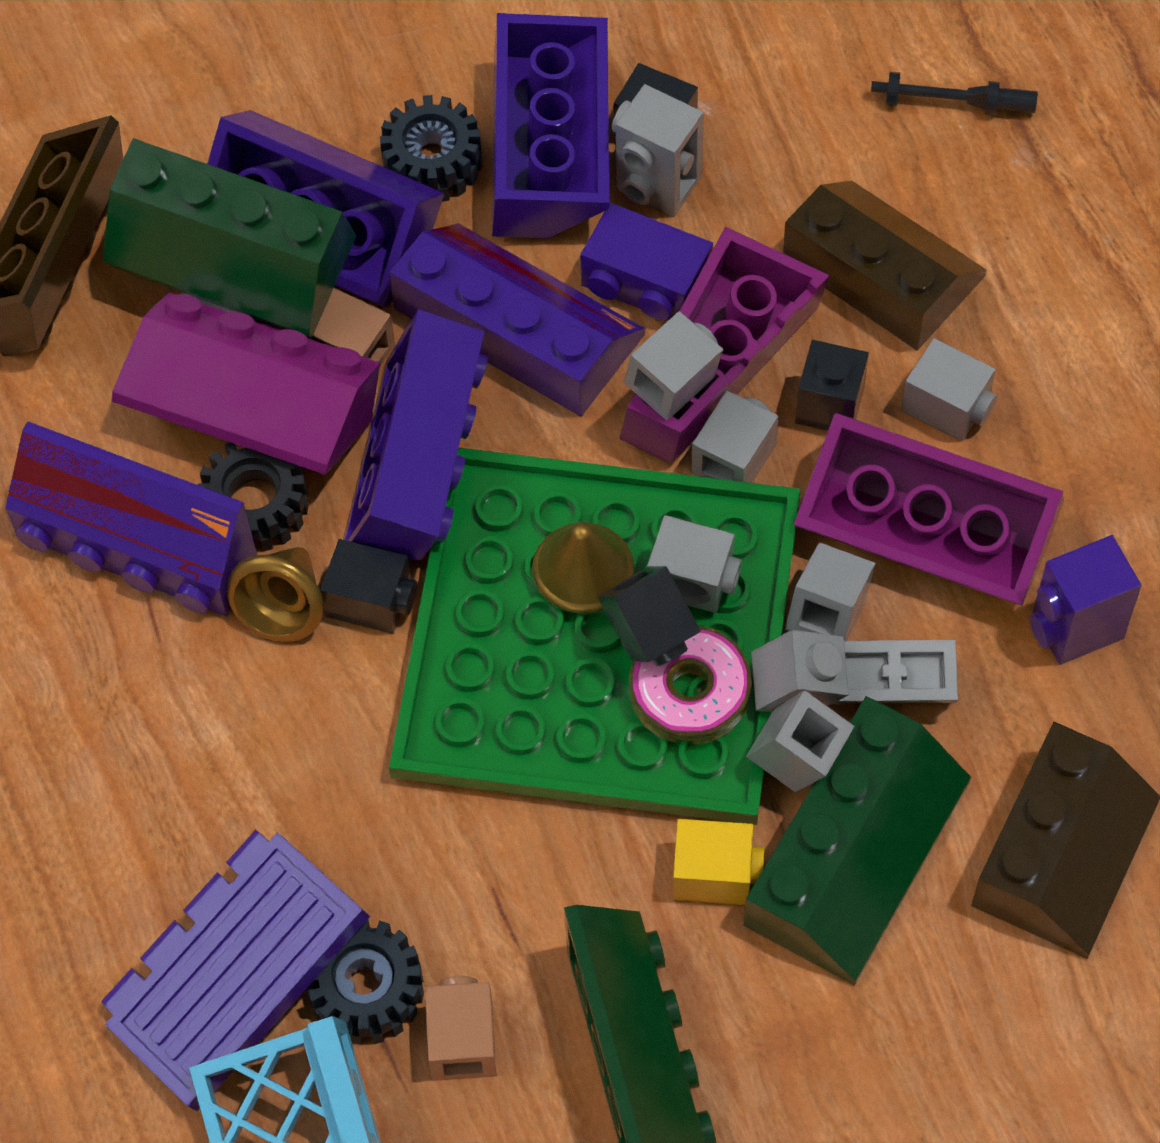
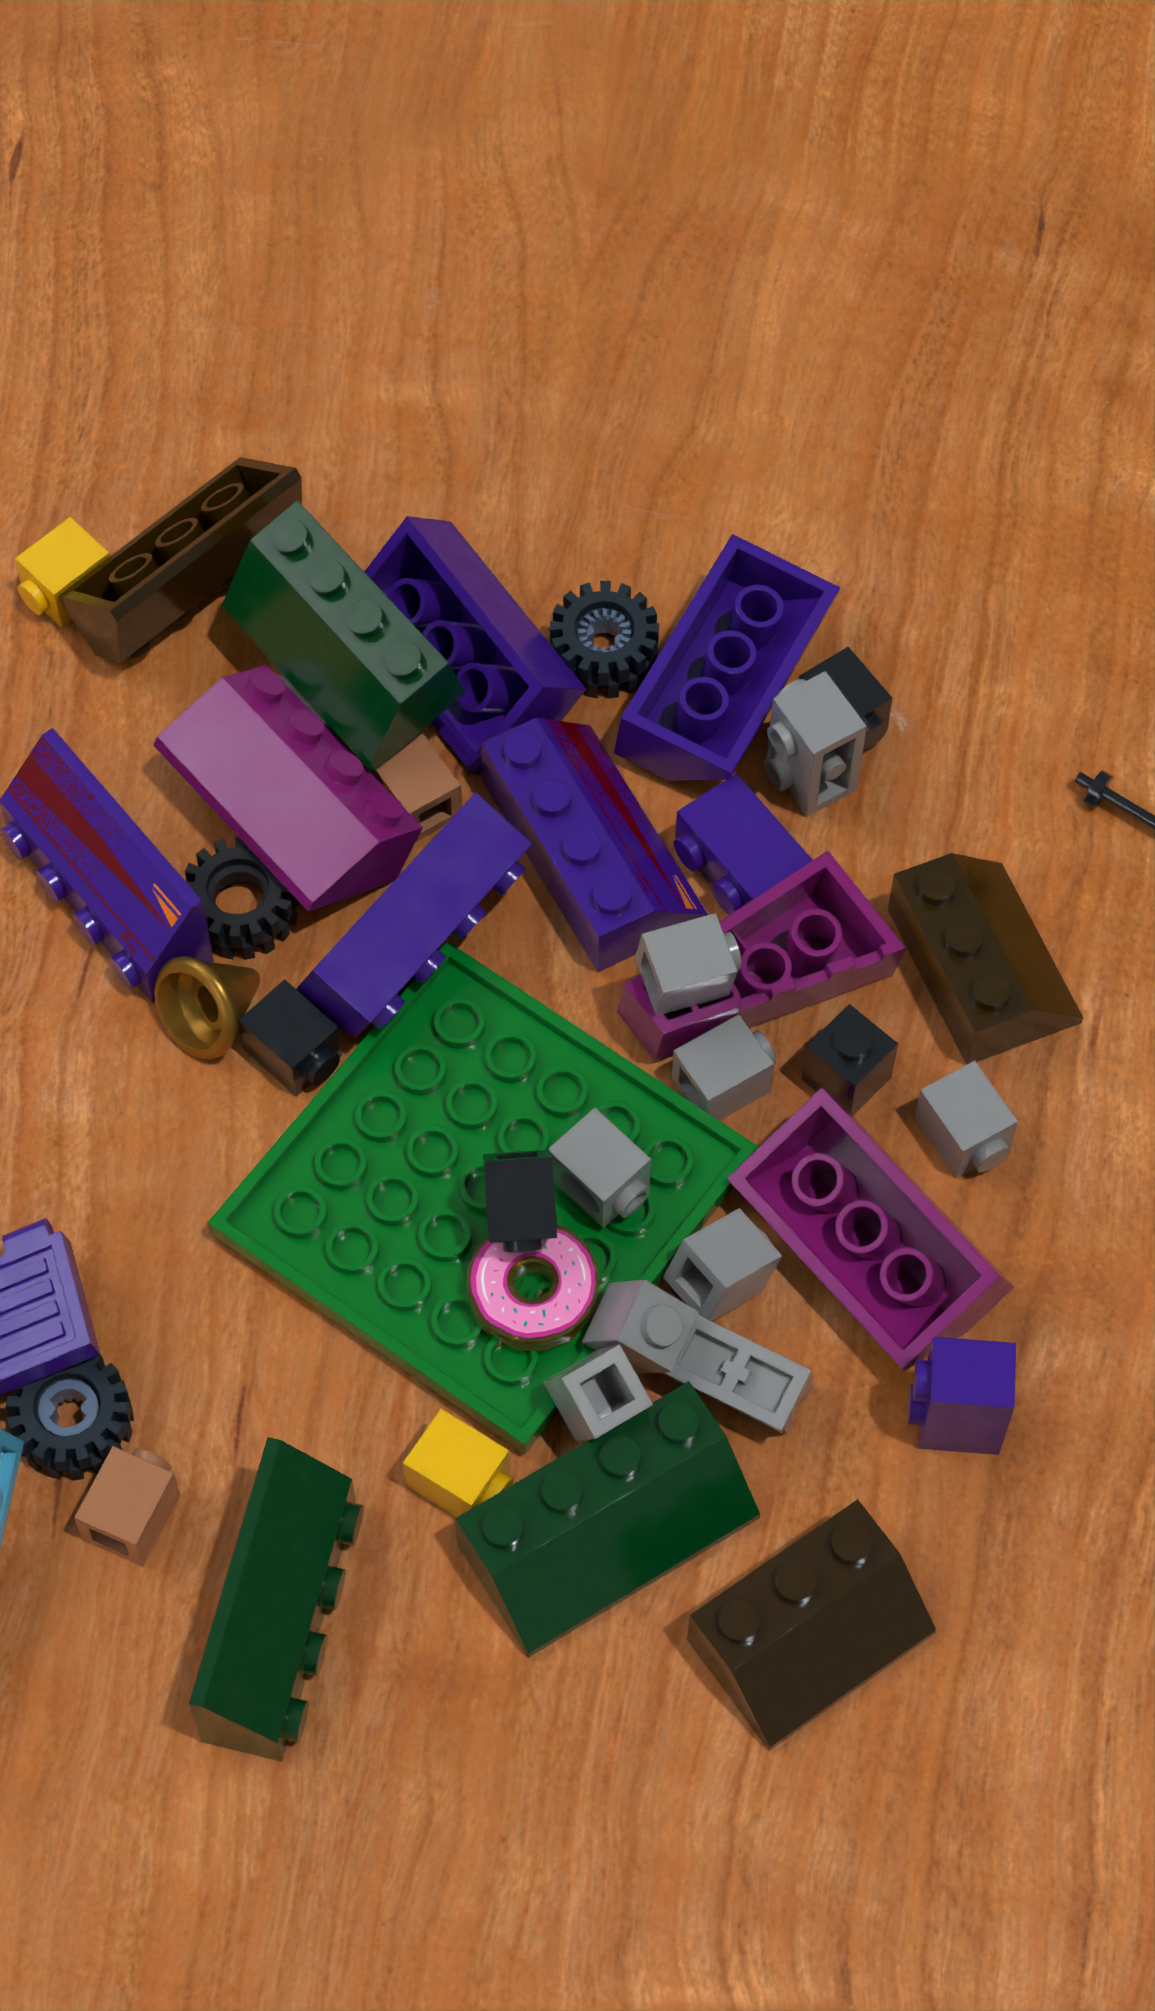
camera: 25 degrees right, 0 degrees up
(579, 565) = (499, 1116): pearl gold hat -> none

